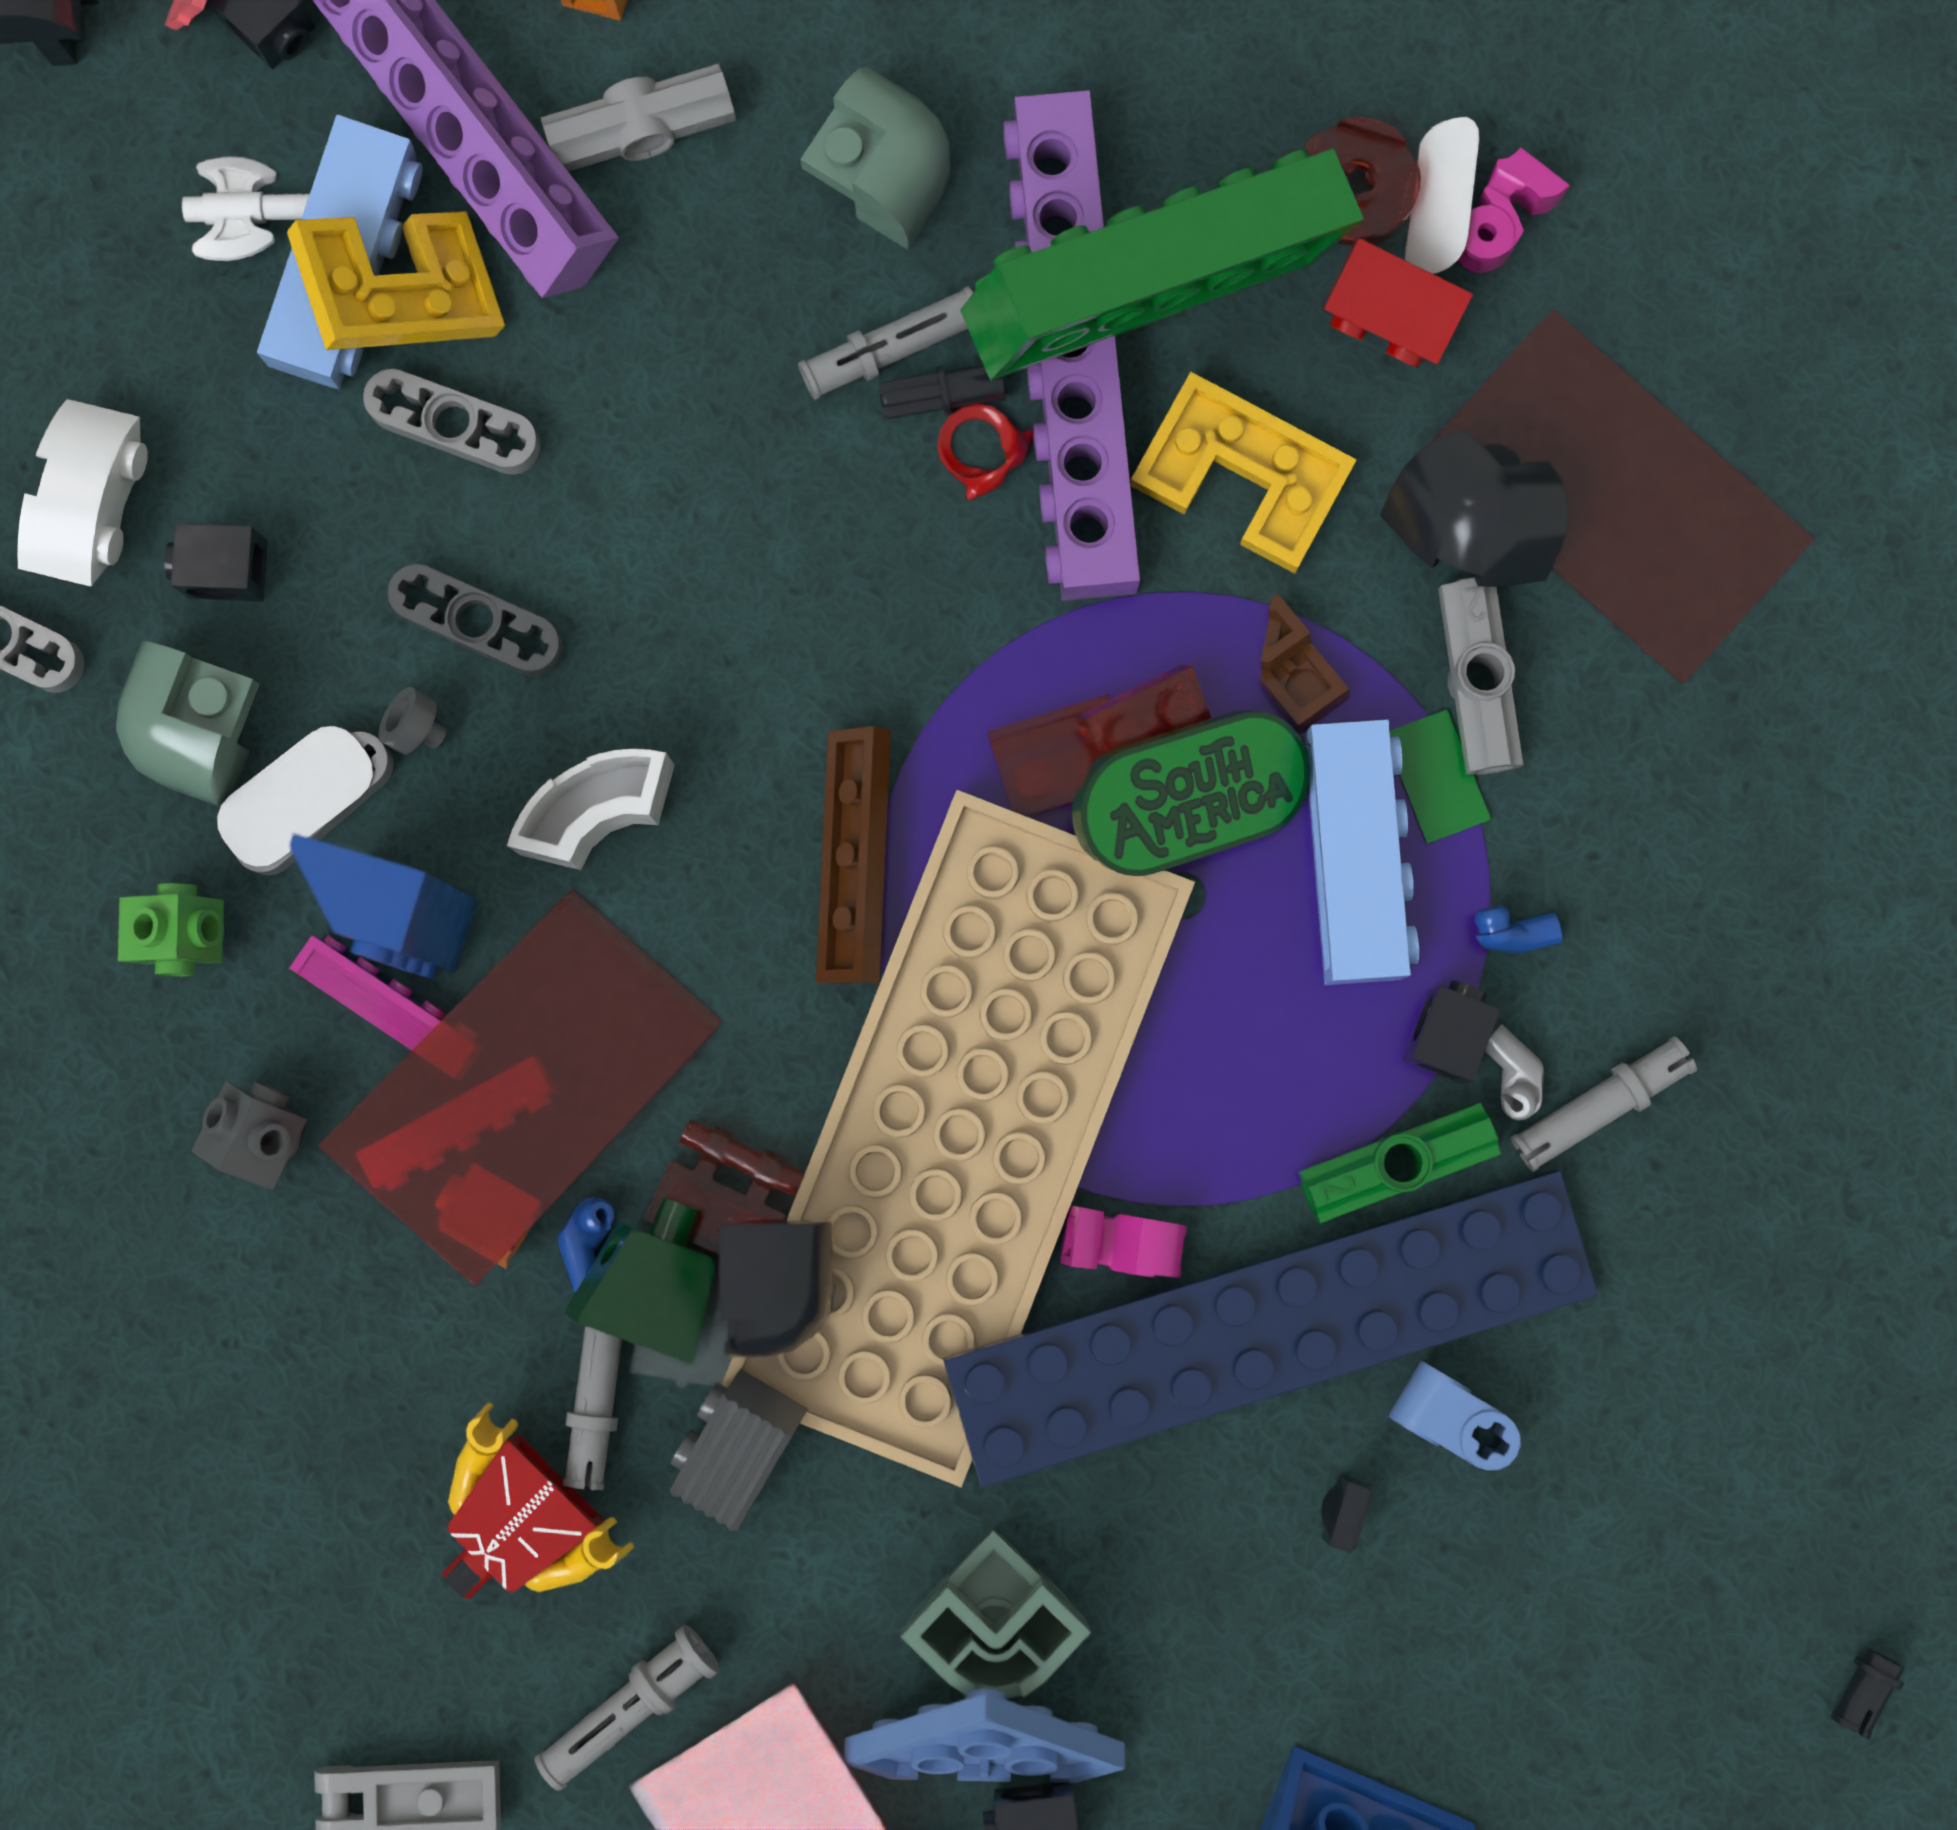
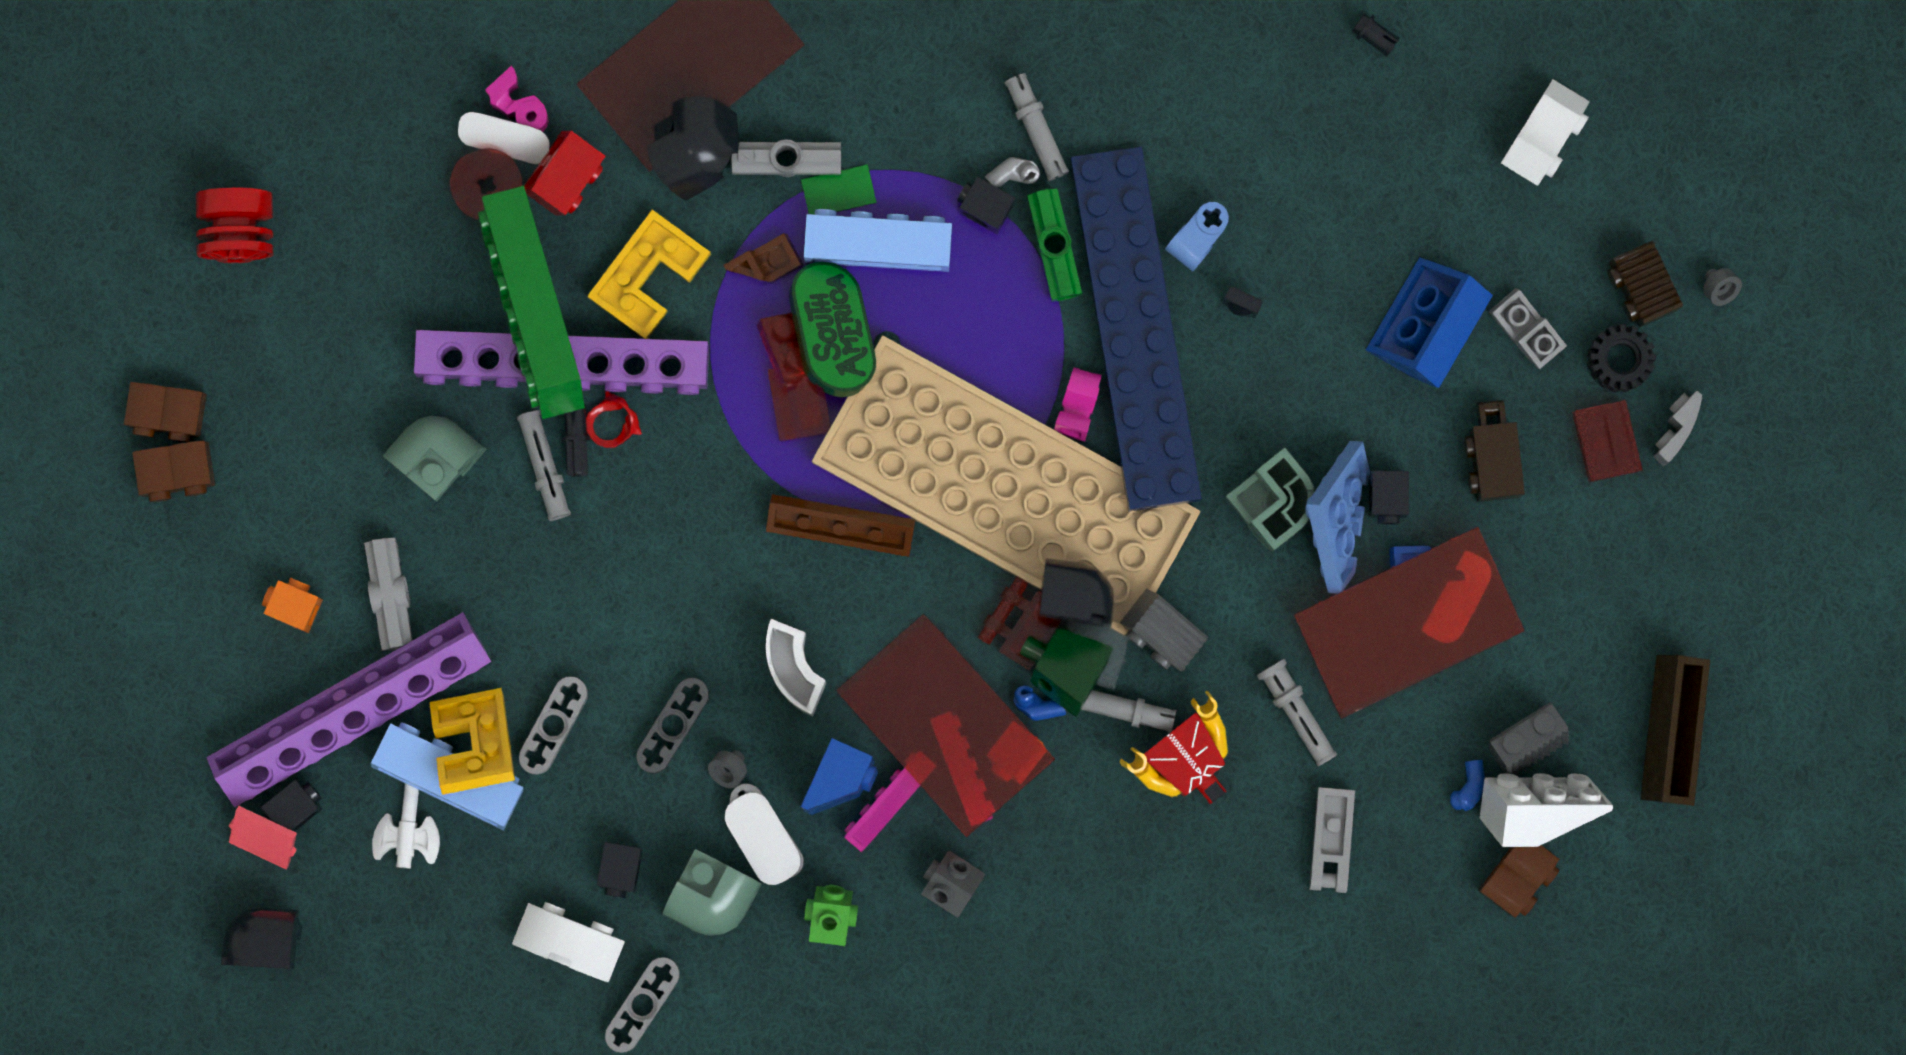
camera: 85 degrees left, 0 degrees up
(1515, 937) = (936, 157): blue arm -> none

